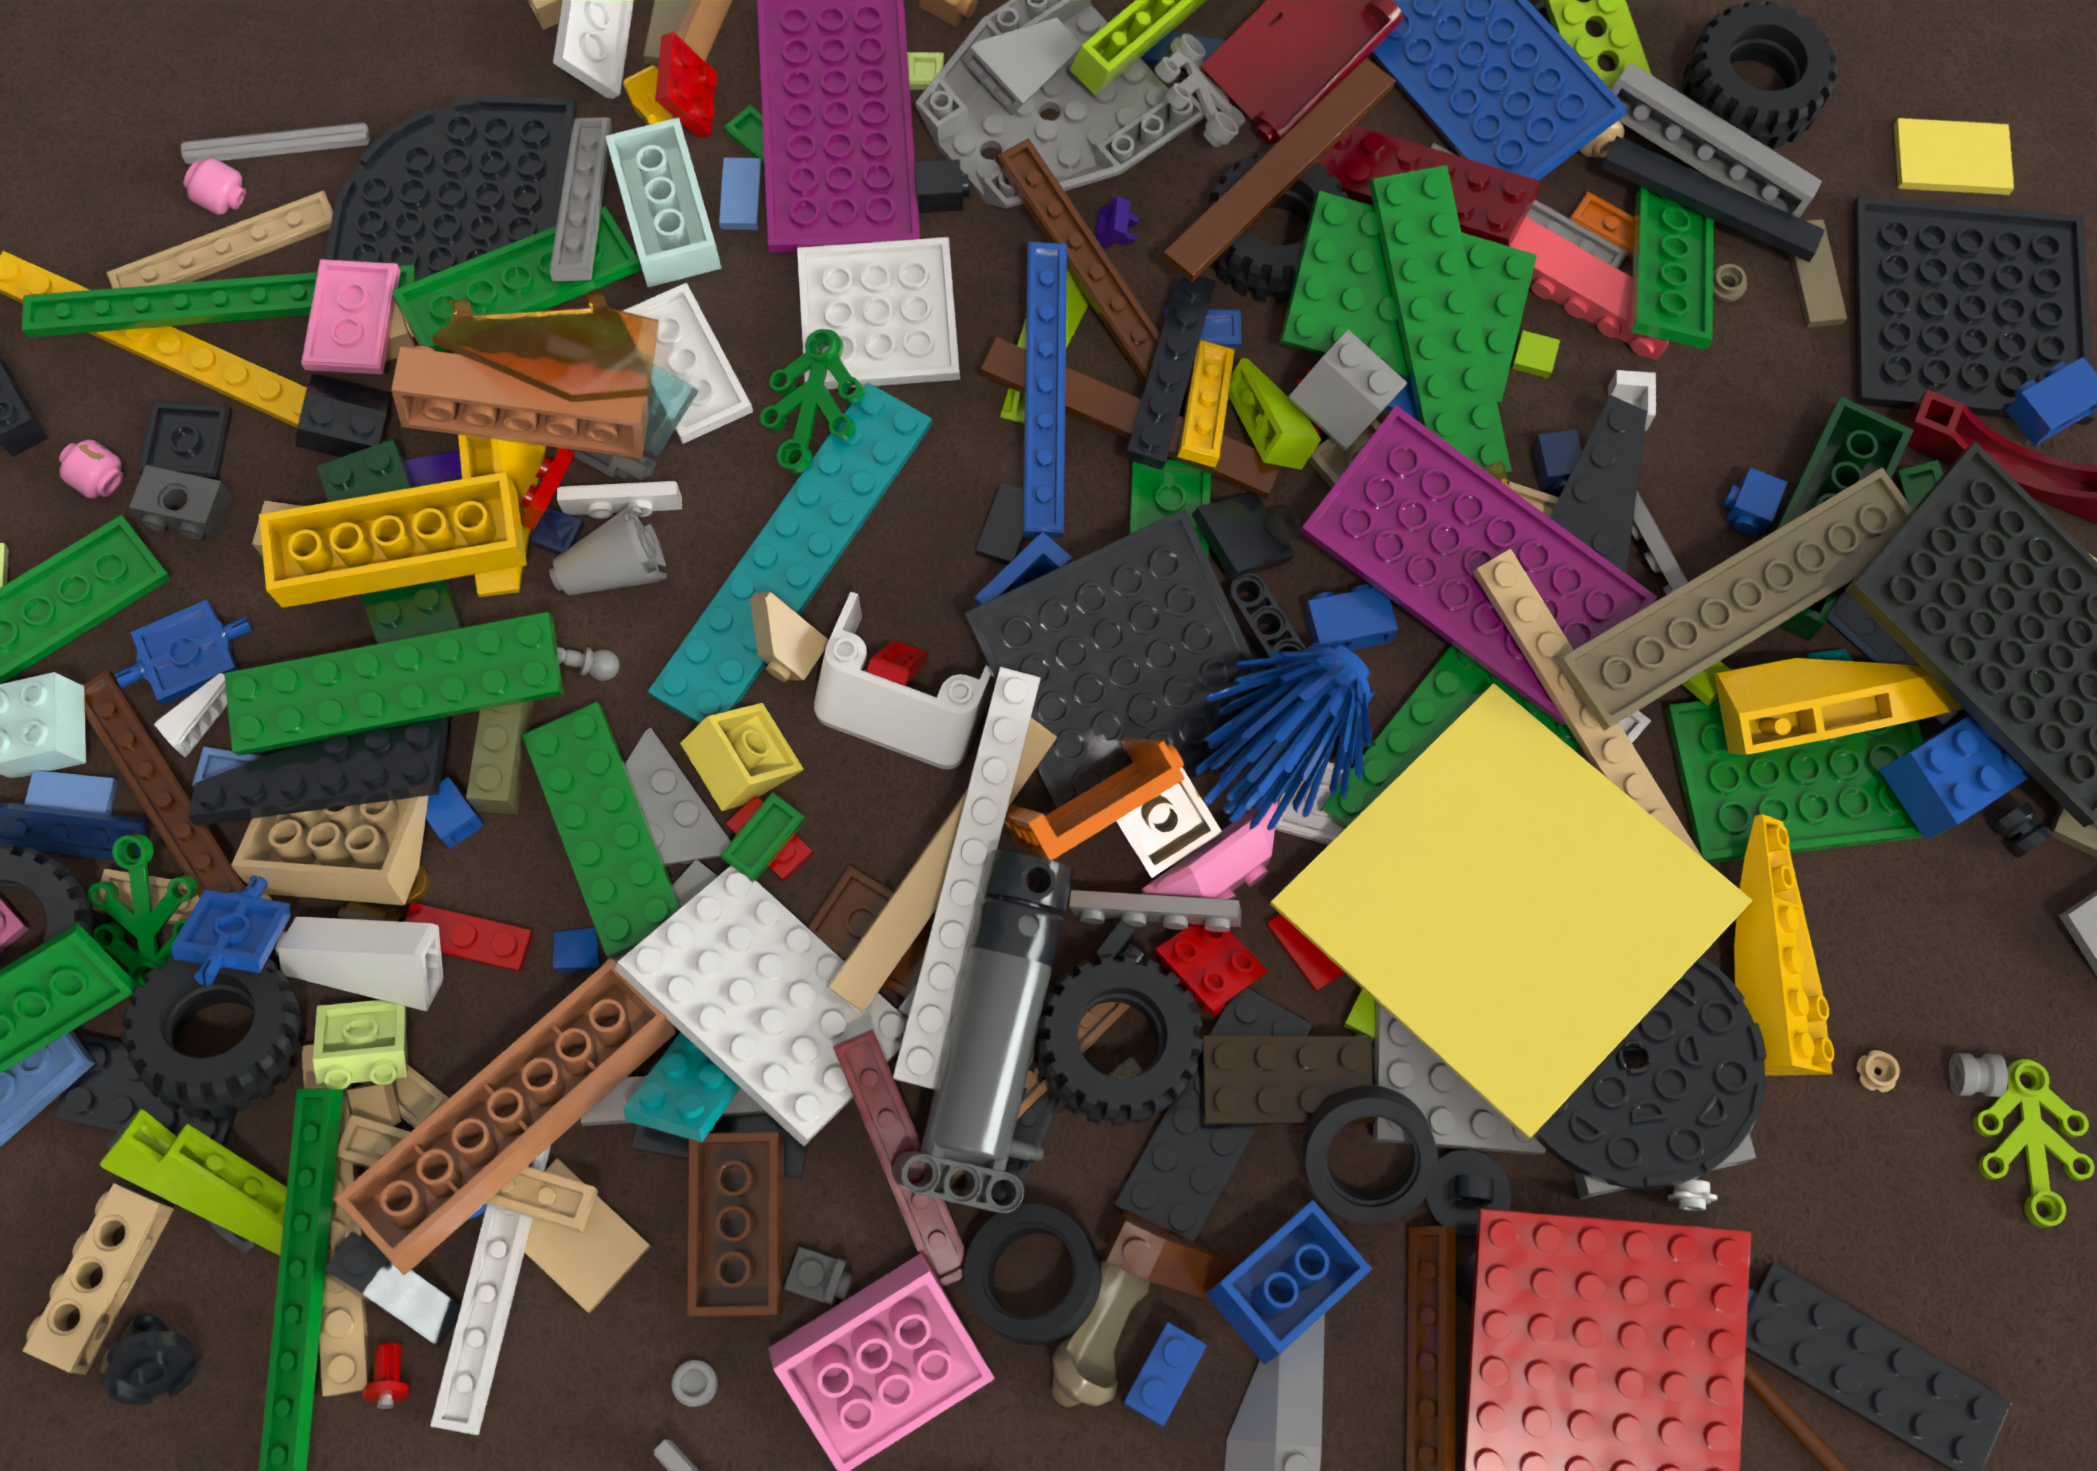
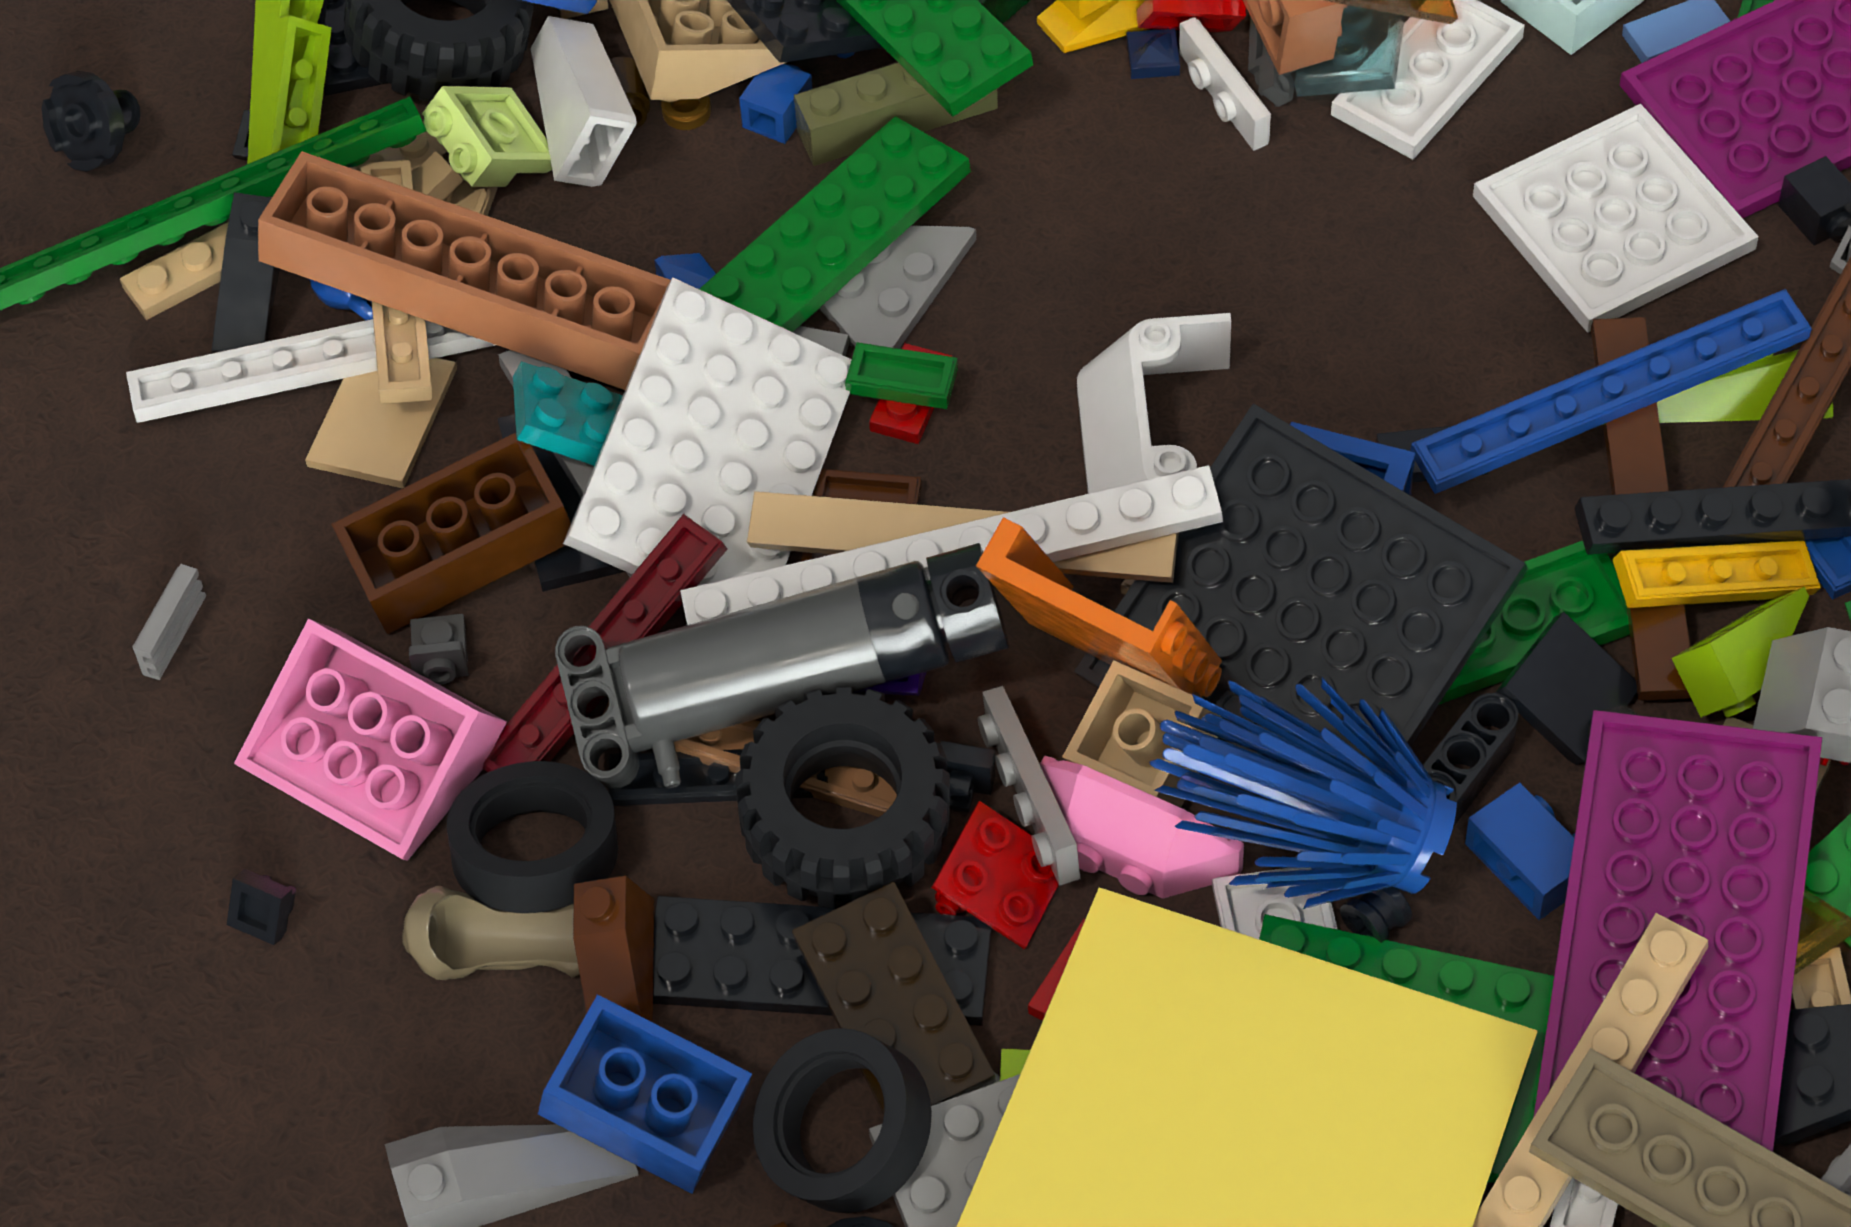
camera: 70 degrees right, 15 degrees down
(98, 1306) = (158, 49): tan brick -> none
(386, 1384) = (152, 322): red piece -> none
(475, 937) = (654, 184): red plate -> none
(599, 664) = (1023, 157): light grey bar -> none
(611, 557) = (1153, 105): light grey cone -> none
(694, 1383) = (273, 587): light grey tile -> none
(740, 755) = (990, 318): light yellow slope -> none
(784, 638) = (1143, 288): tan slope -> none
(792, 554) = (1264, 270): teal plate -> none
(810, 396) = (1459, 192): green plant -> none
(898, 662) = (1182, 407): red plate -> none
(1164, 1375) = (479, 1019): blue brick -> none

